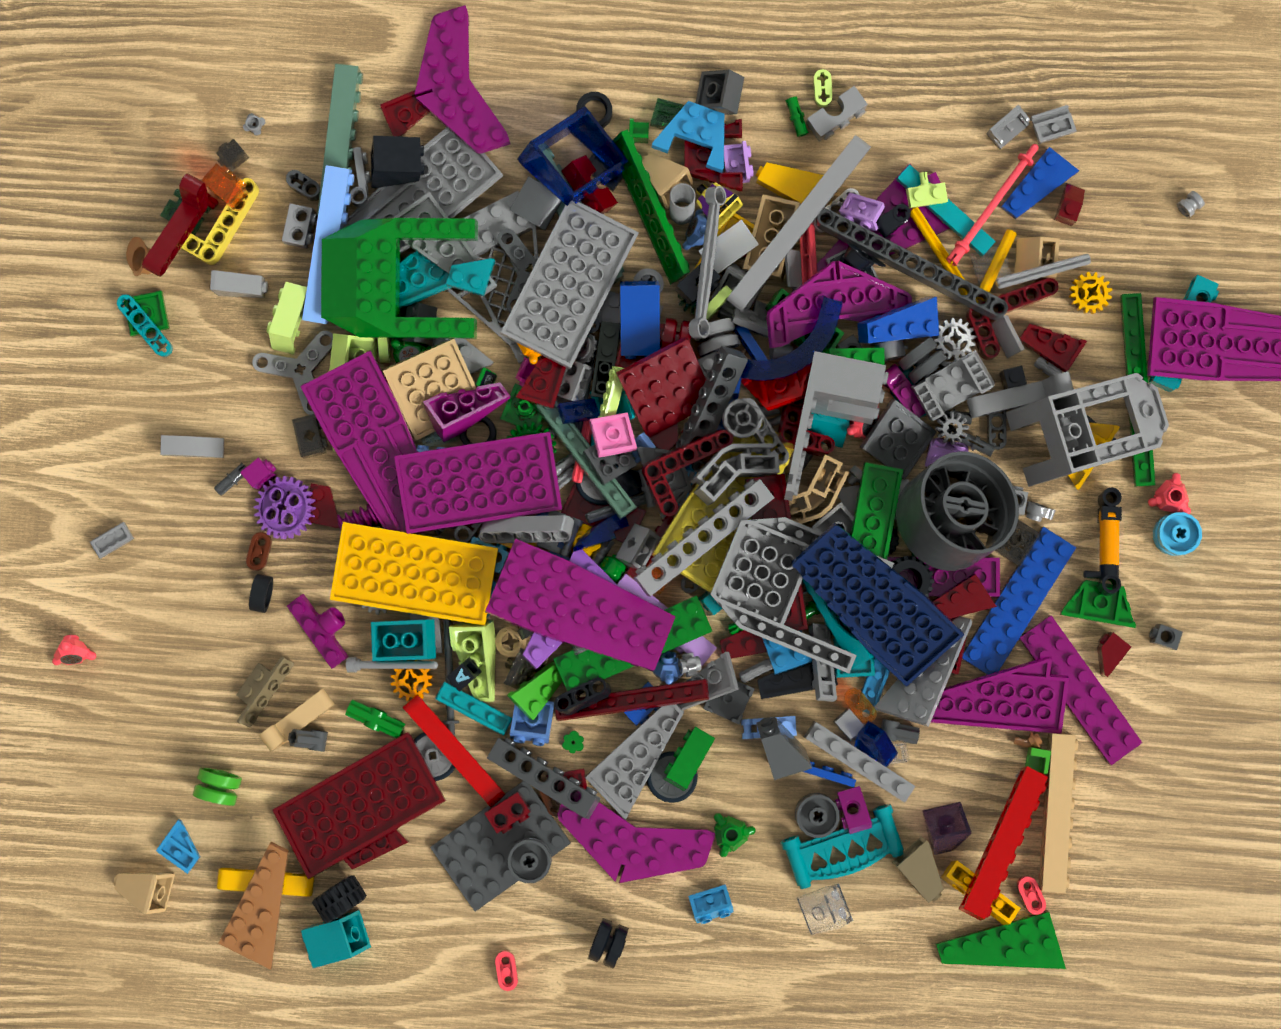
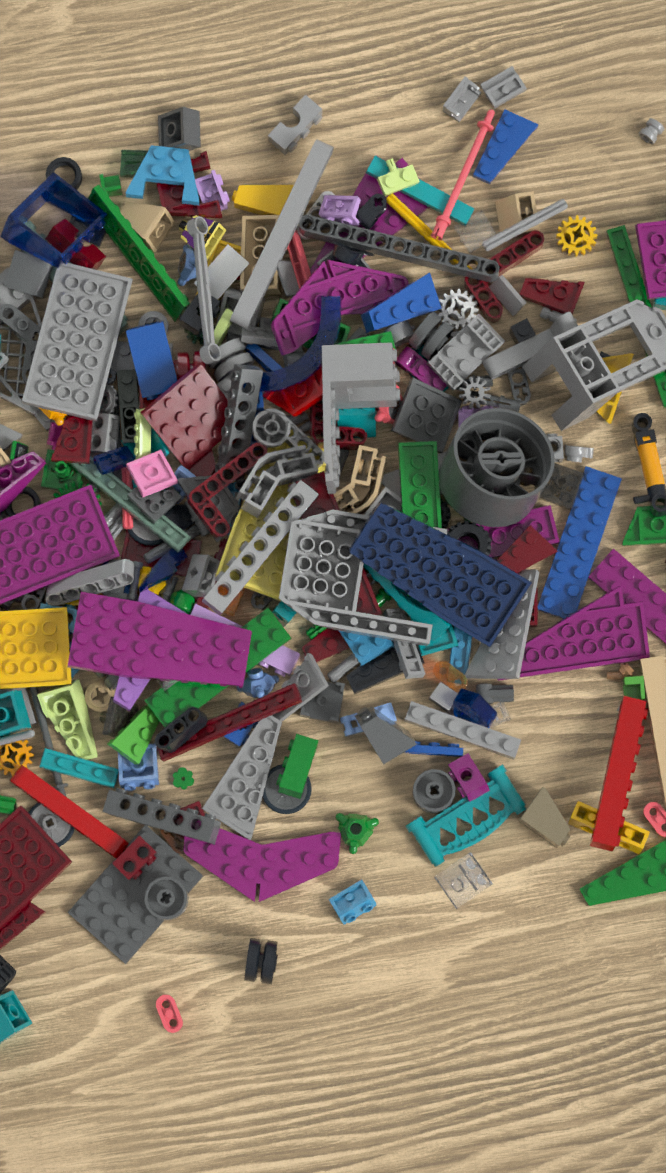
camera: 10 degrees left, 5 degrees down
(464, 674) = (62, 736): black brick -> none
(682, 193) = (166, 241): light grey piece -> none
(689, 664) = (276, 675): light grey gear -> none
(796, 116) = (258, 136): green pin -> none
(827, 88) = (280, 103): yellowish green beam -> none
(856, 475) = (394, 460): light grey tile -> none
(946, 827) = (561, 773): slope -> none
(997, 261) = (481, 226): yellow axle -> none
(1070, 205) = (537, 159): dark red slope -> none

